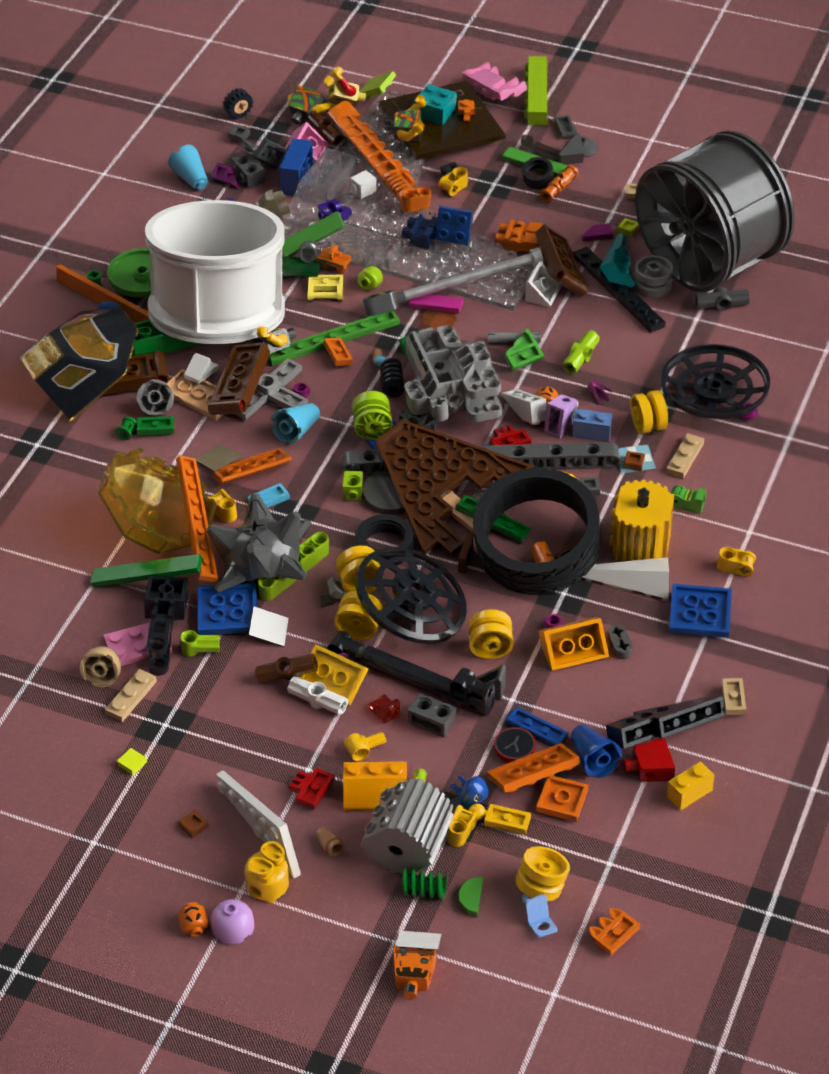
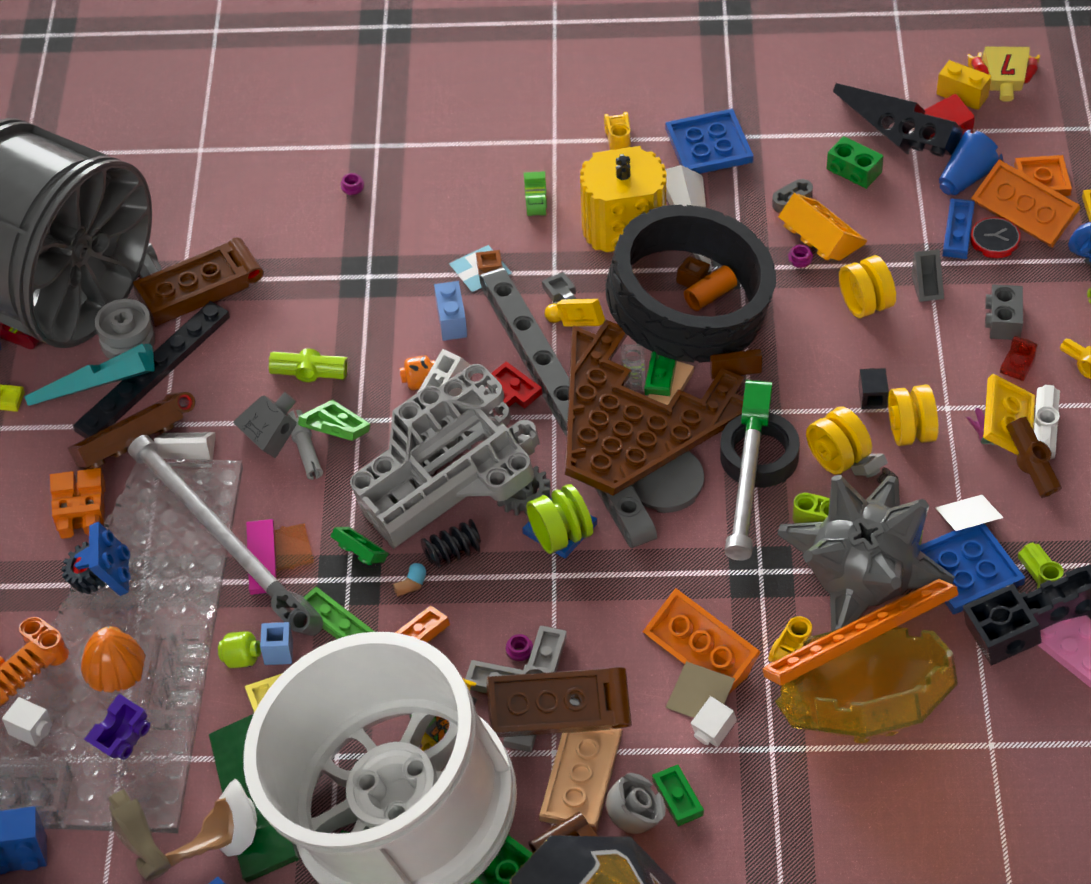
camera: 110 degrees left, 5 degrees up
(126, 428) = (702, 829): green bush -> none
(142, 570) = (974, 664): green tile -> none
(191, 448) = (713, 722): none -> white brick
(200, 368) = (541, 781): white slope -> none
(273, 495) = (743, 606): medium azure tile -> none
(294, 422) = (595, 616): medium azure cone -> none
(306, 254) = (213, 743): flat silver wheel -> none
(314, 232) = (179, 744): bright green tile -> none
(333, 257) = (212, 710): orange hips -> none
(353, 485) = (681, 514): lime brick -> none
(361, 288) = (276, 643): none -> medium blue brick
(383, 216) = (112, 660): none -> orange hair
(405, 533) = (754, 415): none -> flat silver piece
(418, 600) = (855, 362): black dish -> none
(420, 231) = (123, 604): dark blue hips -> none
(463, 689) = (957, 343): black piece -> none
(536, 318) = (268, 423): none -> dark grey torso
(560, 410) = (448, 334): lavender torso -> none
(597, 388) = (374, 329): flat silver piece -> none
(598, 232) = (31, 425): magenta tile -> none
(634, 685) = (854, 162): none -> green brick
(649, 411) = (412, 254): yellow wheel -> none
(683, 315) = (198, 281): none -> reddish brown hinge
(685, 455) = (456, 221): tan plate -> none
(694, 820) = (1008, 68): none -> light yellow torso
(724, 384) = (320, 209): black dish -> none
(733, 696) = (816, 87): tan plate -> none

